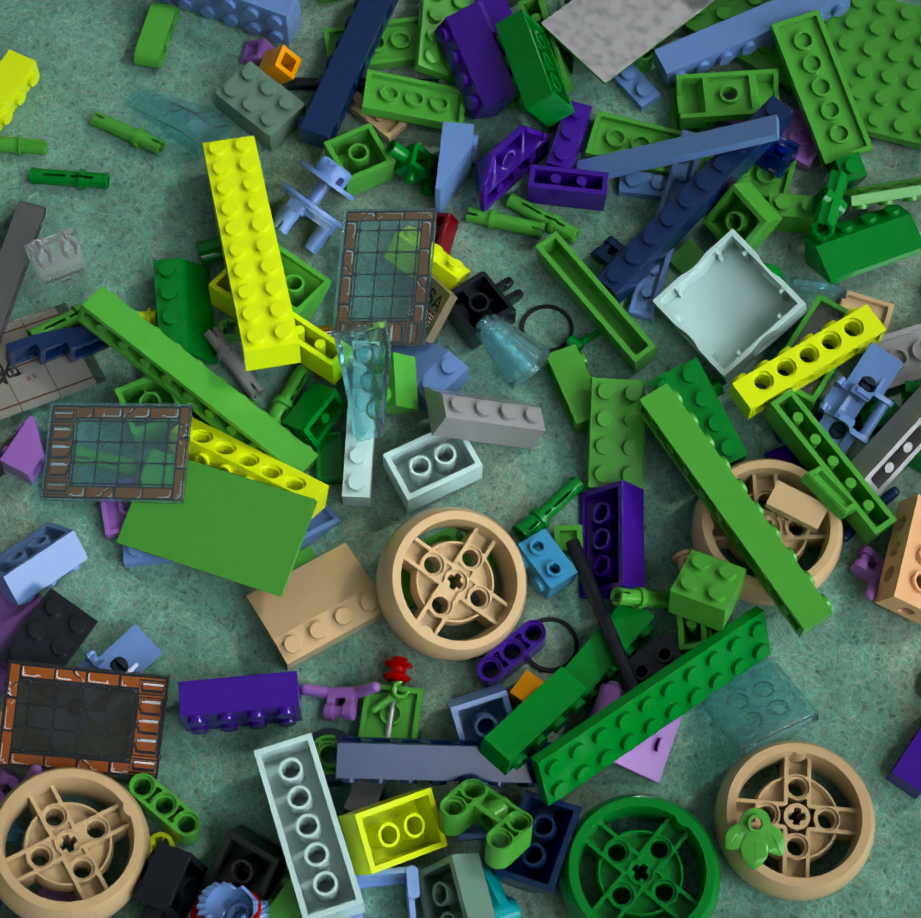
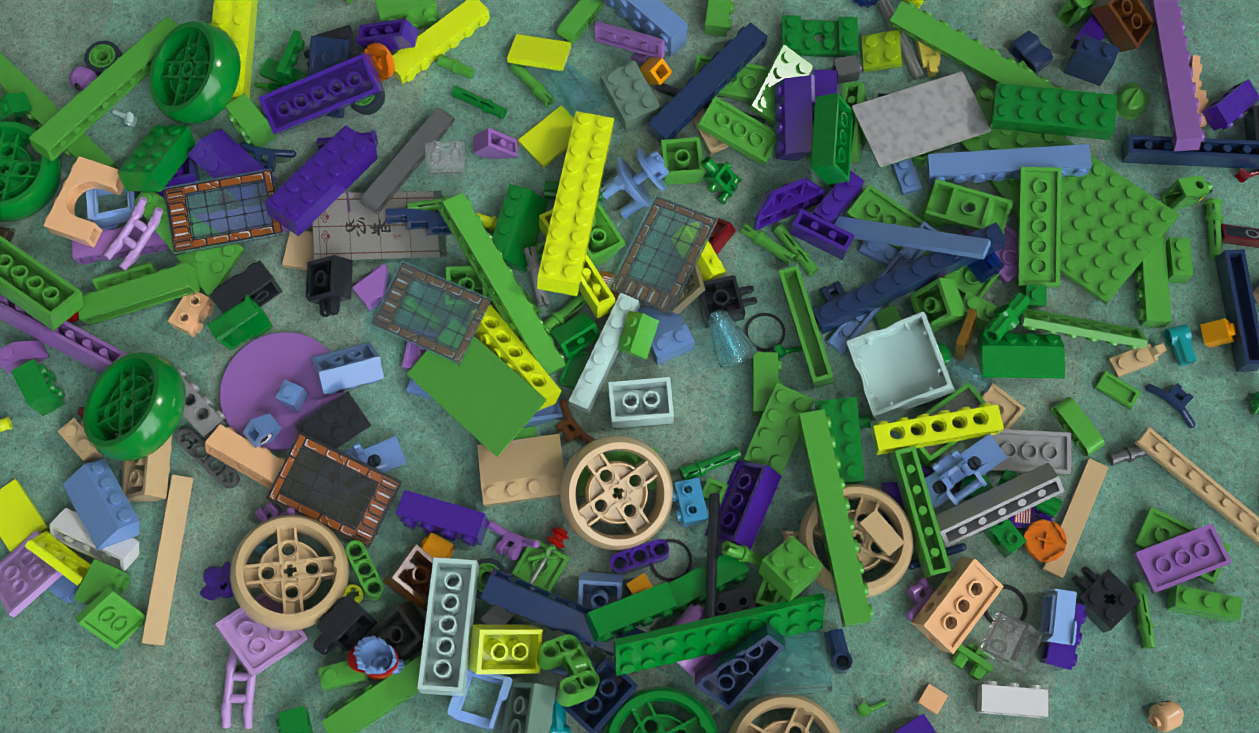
camera: 25 degrees right, 5 degrees up
(112, 222) = (494, 145): none -> medium lavender slope
(122, 92) = (539, 52): none -> neon yellow tile
(178, 190) = (549, 137): none -> neon yellow tile
(231, 39) = (629, 40): none -> medium lavender tile
(234, 791) = (412, 576): none -> reddish brown slope
(245, 741) = (437, 546): none -> light orange brick
(354, 530) = (569, 422): none -> reddish brown piece
(365, 369) = (617, 318): clear light blue wedge -> none
(456, 156) = (748, 187): medium blue slope -> none
(483, 418) = (689, 382): light grey slope -> none
(696, 735) = (740, 667): none -> dark blue wedge
(789, 242) = (966, 334): none -> pearl gold tile
(800, 670) = (838, 649): none -> dark blue piece
(829, 492) = (909, 532): bright green tile -> none
(864, 730) = (864, 710): none -> bright green hand

